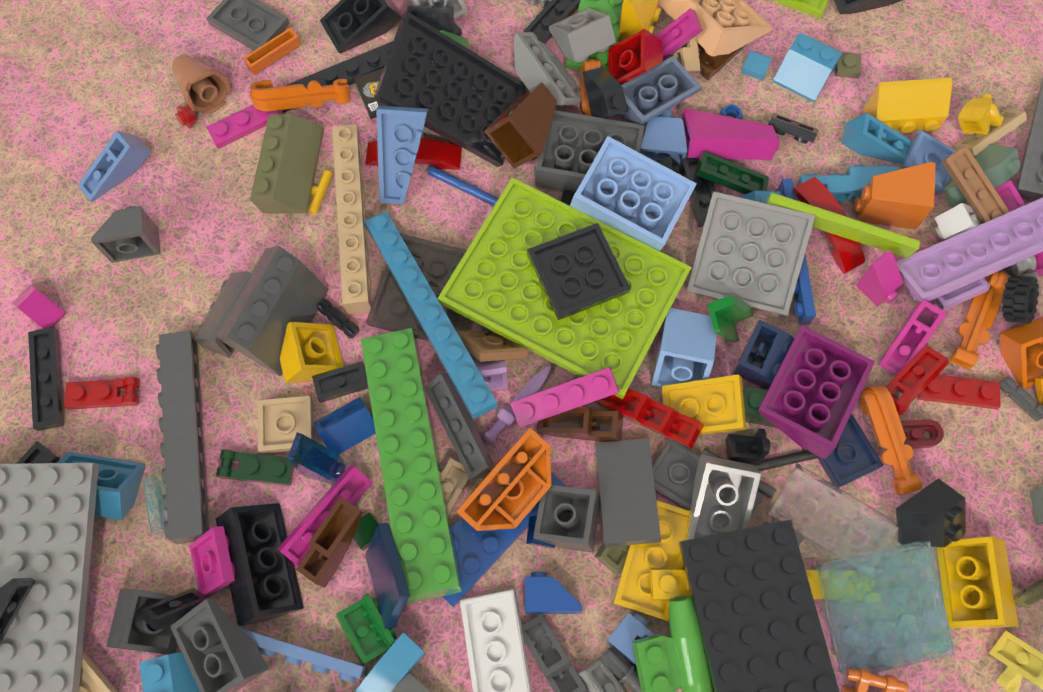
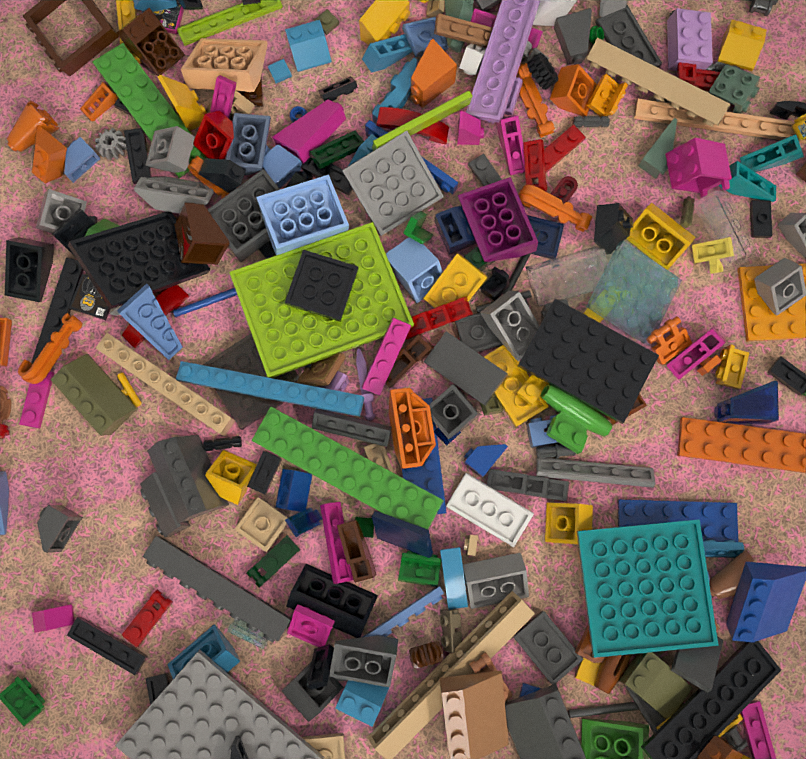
camera: 50 degrees left, 10 degrees up
(438, 664) = (470, 545): none -> tan plate
(856, 332) = (484, 170): none -> dark grey plate

